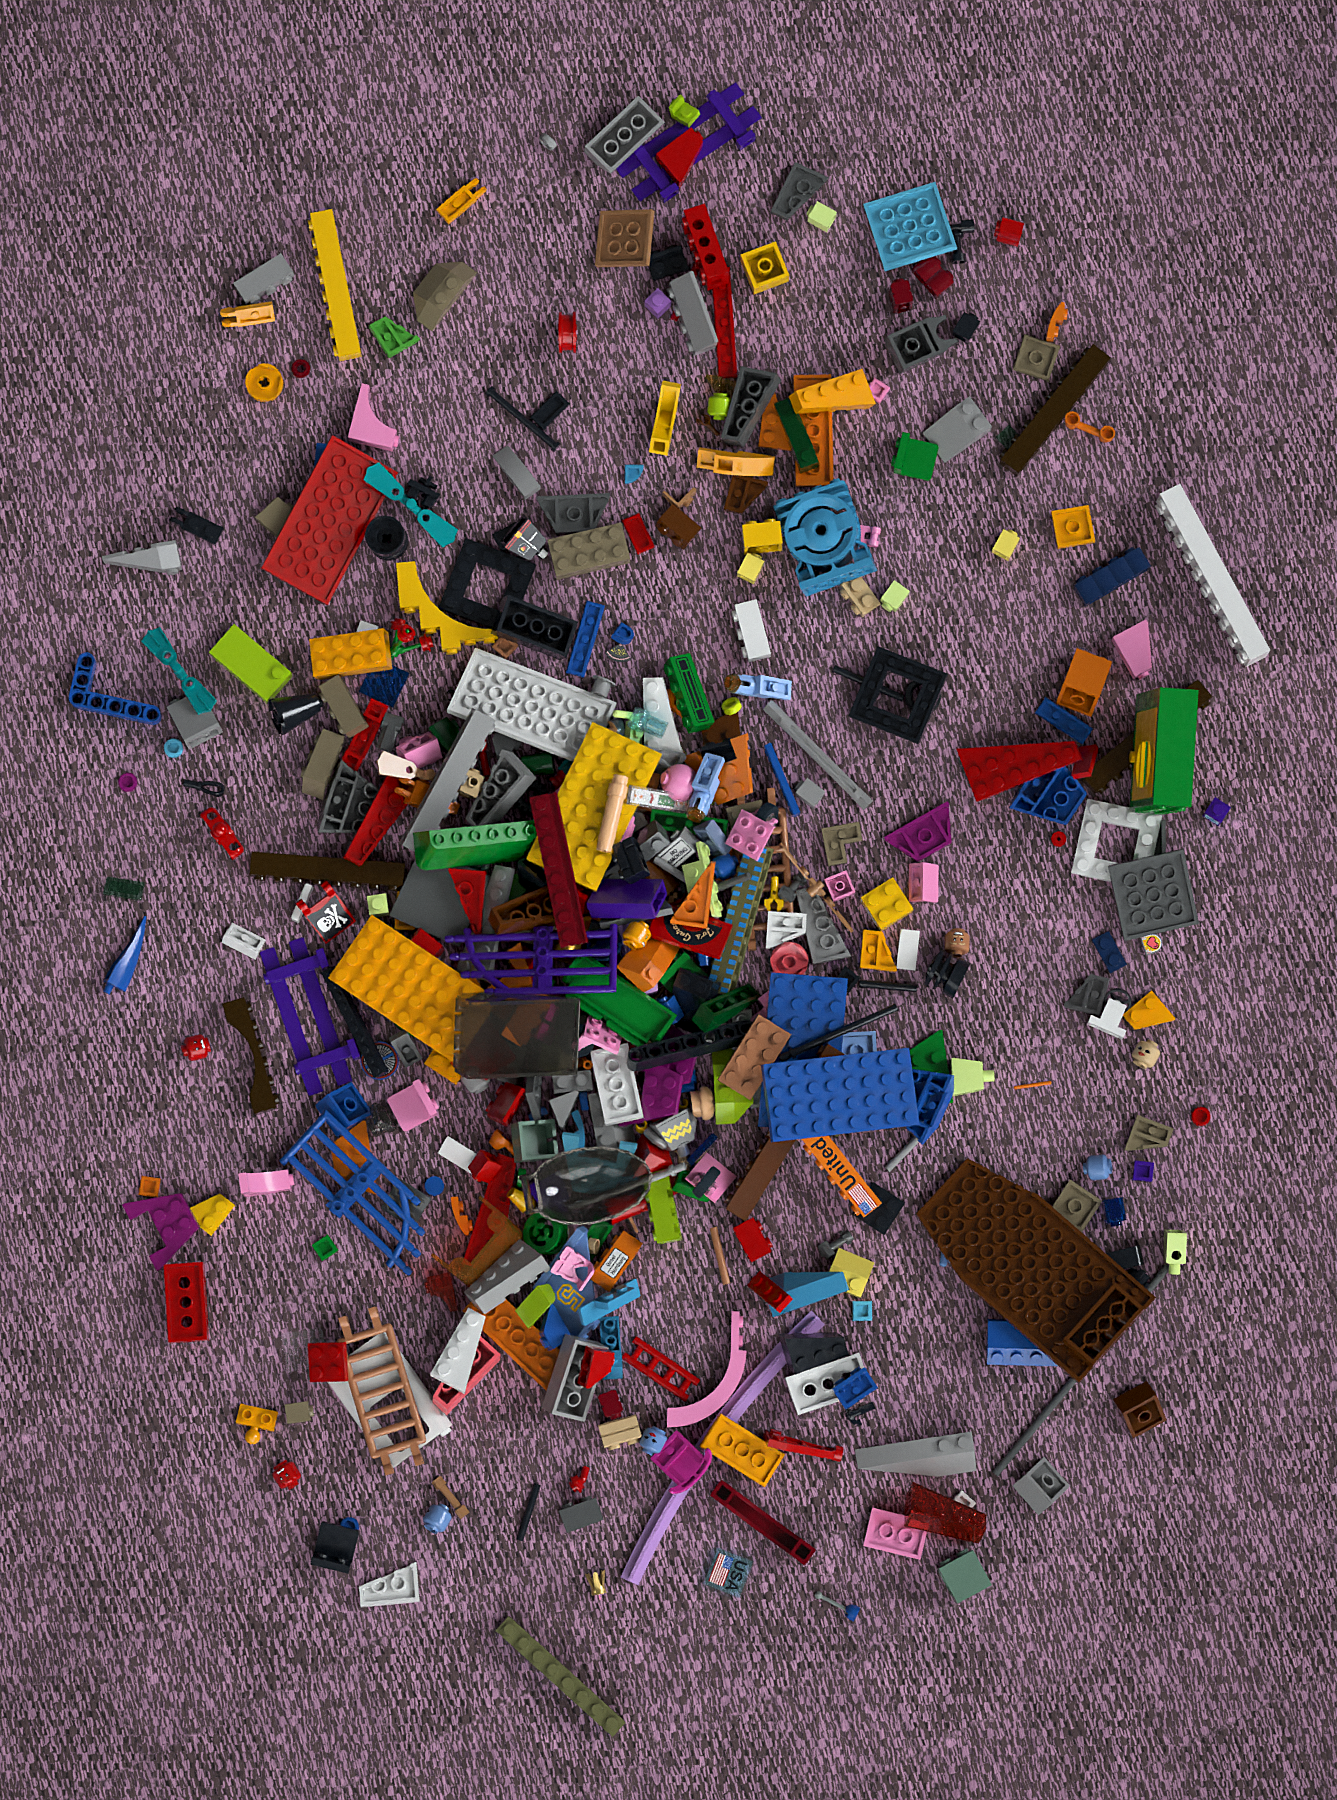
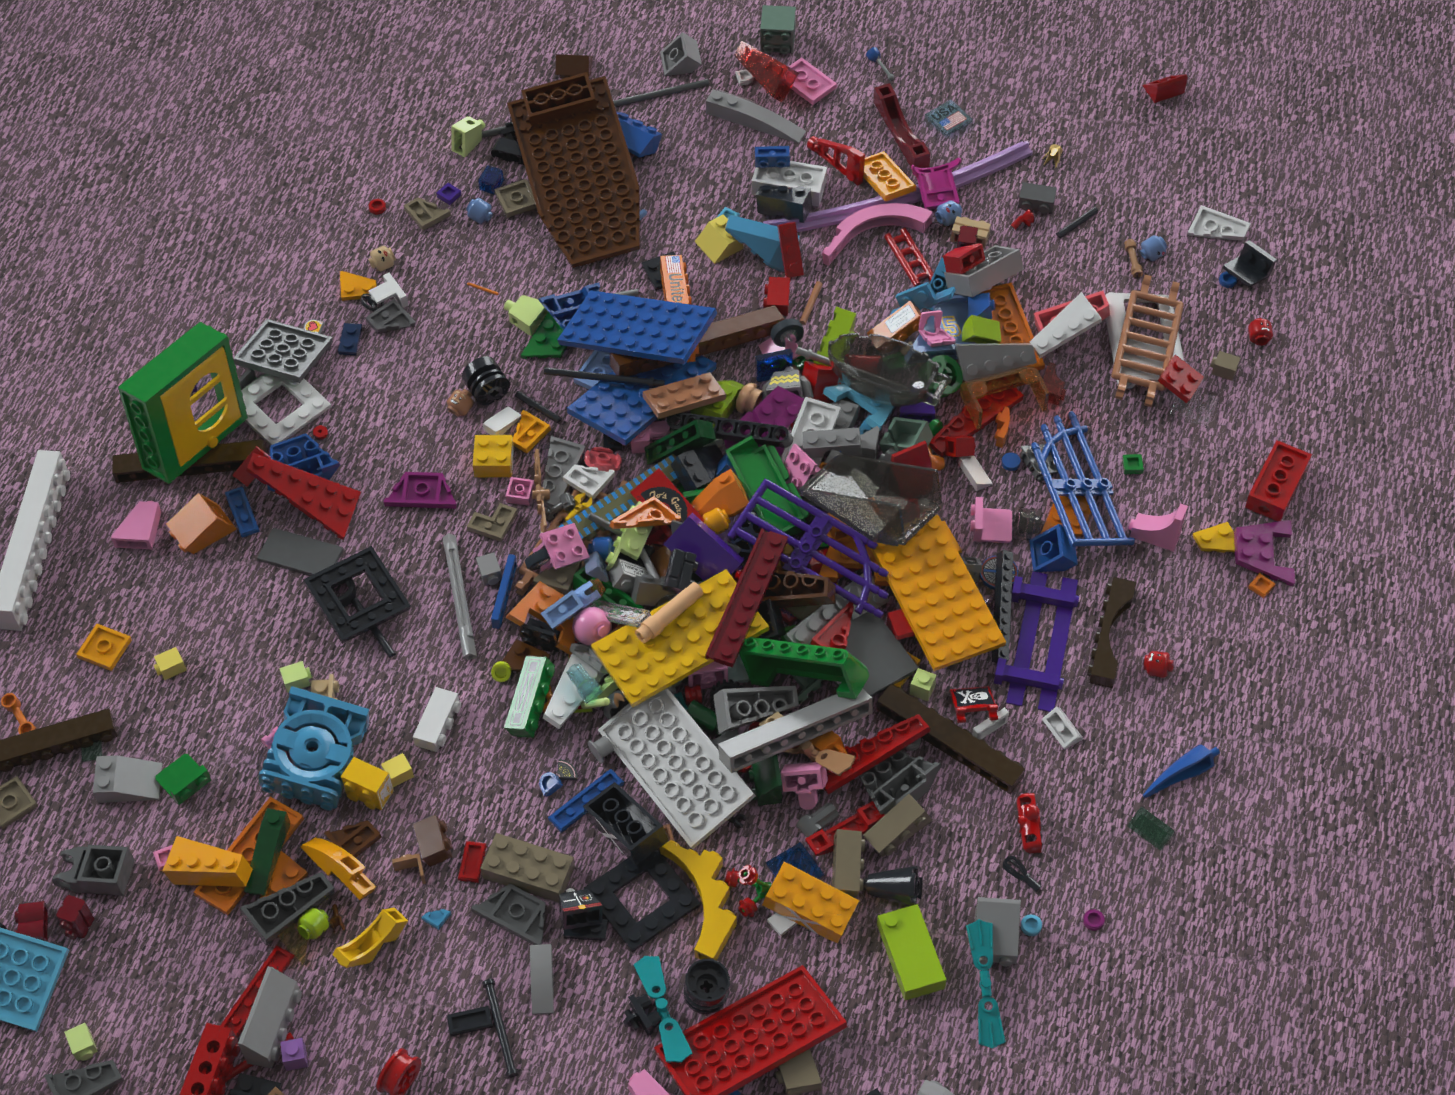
camera: 145 degrees left, 25 degrees down
(107, 701) = (1072, 1001): blue beam -> none
(257, 1419) = (1264, 381): light orange plate -> none
(517, 1198) = (945, 411): yellow cone -> none
(539, 1750) = (1166, 87): none -> red slope
(560, 1676) = (1119, 115): olive brick -> none
(578, 1081) = (844, 440): none -> light grey arch
(758, 686) = (466, 668): light blue plate -> none
(764, 267) = (171, 1023): yellow brick -> none
(827, 1250) = (724, 264): dark grey bar -> none
(852, 978) = (567, 425): black plate -> none
(923, 882) = (452, 459): bright pink panel -> none
(966, 327) = (43, 860): black brick -> none
(981, 712) = (298, 552): none -> dark grey tile
(1112, 576) = (108, 590): dark blue brick -> none

